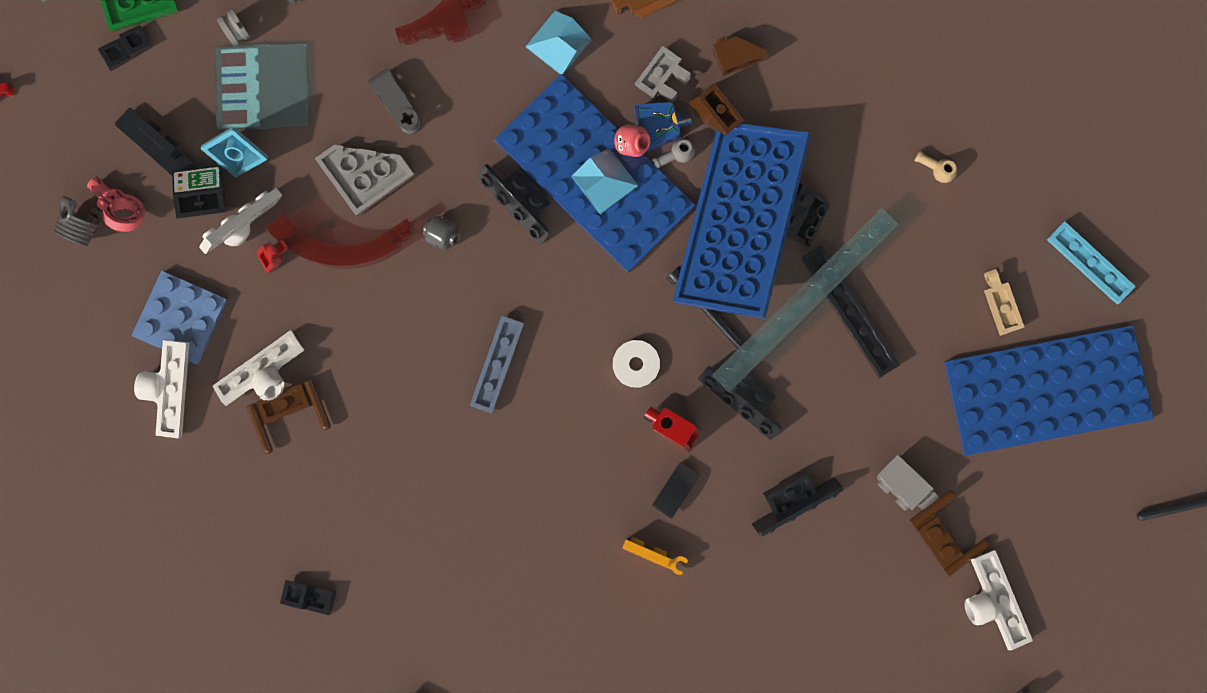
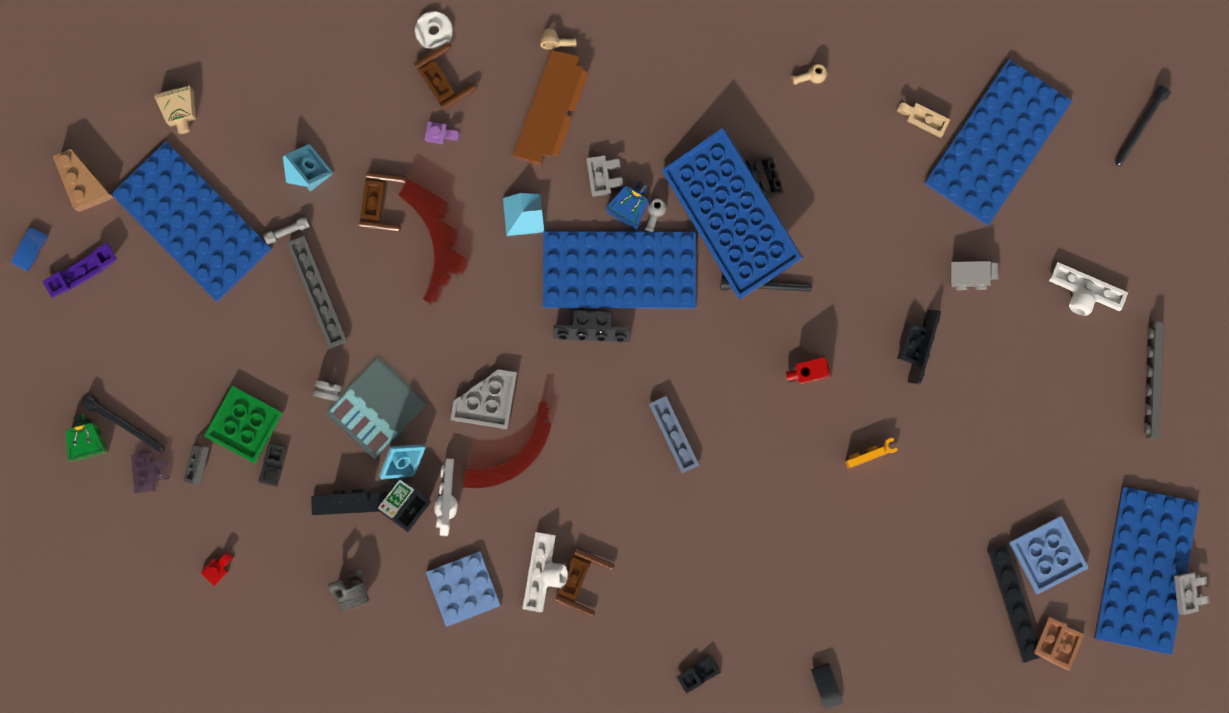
camera: 45 degrees left, 0 degrees up
(113, 200) = (357, 558): coral pin -> none
(167, 388) = (498, 635): white plate -> none
(270, 255) = (481, 501): red plate -> none
(395, 101) = (462, 340): dark grey piece -> none
(441, 232) = (566, 390): dark grey head -> none
(604, 180) = (631, 269): medium azure slope -> none
(632, 140) = (625, 230): coral head -> none
(634, 349) = (752, 344): white tile -> none
(675, 490) = (846, 405): black slope -> none
(716, 109) = (654, 165): reddish brown slope -> none
(737, 54) = (633, 122): reddish brown slope -> none
(746, 398) = (832, 313): black bracket -> none
(805, 300) = (813, 225): clear light blue plate -> none
(855, 318) = (844, 206): black plate -> none
(940, 541) = (1022, 287): reddish brown plate -> none
(1091, 262) = (951, 46): medium azure plate -> none

